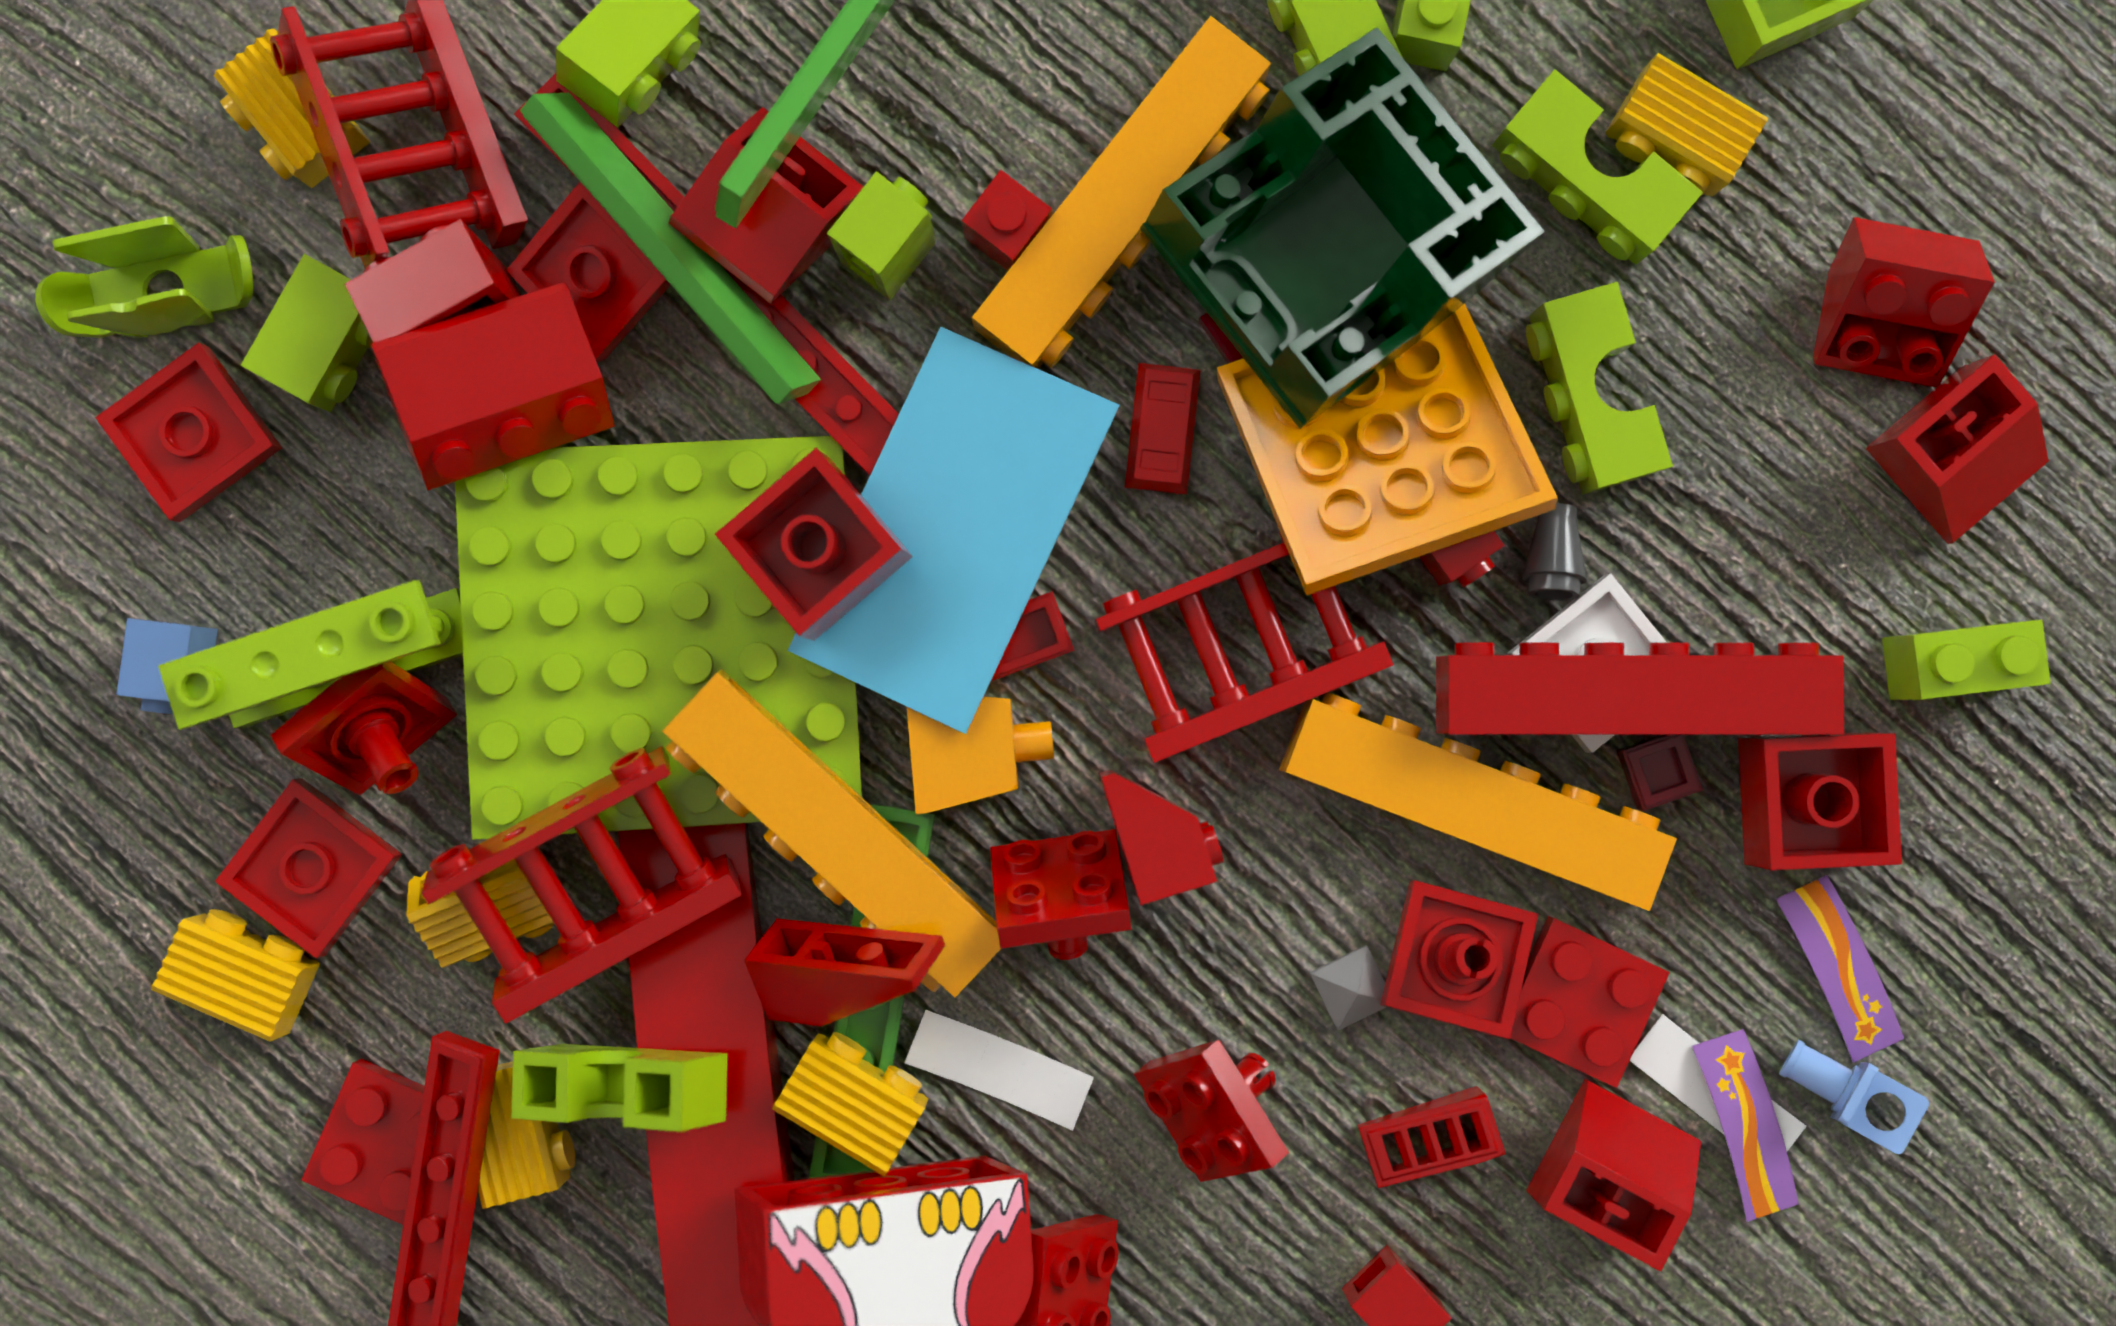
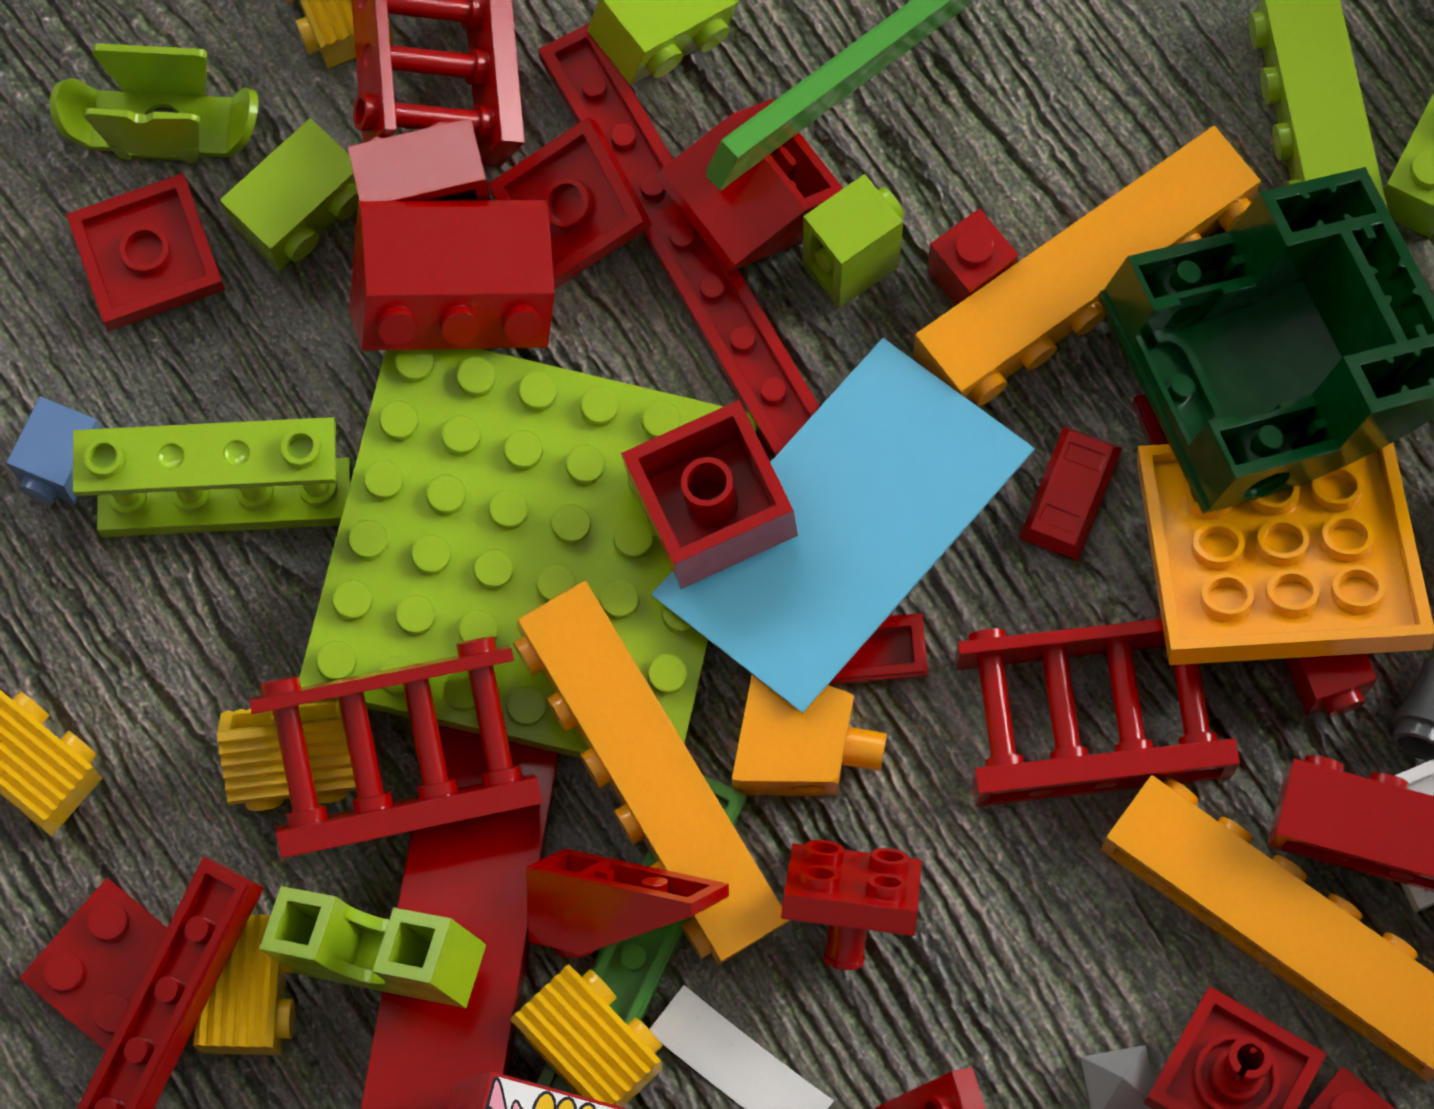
camera: 20 degrees right, 15 degrees down
(308, 868) = (125, 679): red plate -> none
(366, 729) = (230, 555): red plate -> none
(682, 263) = (655, 209): bright green tile -> none
(1160, 840) = (964, 865): red slope -> none

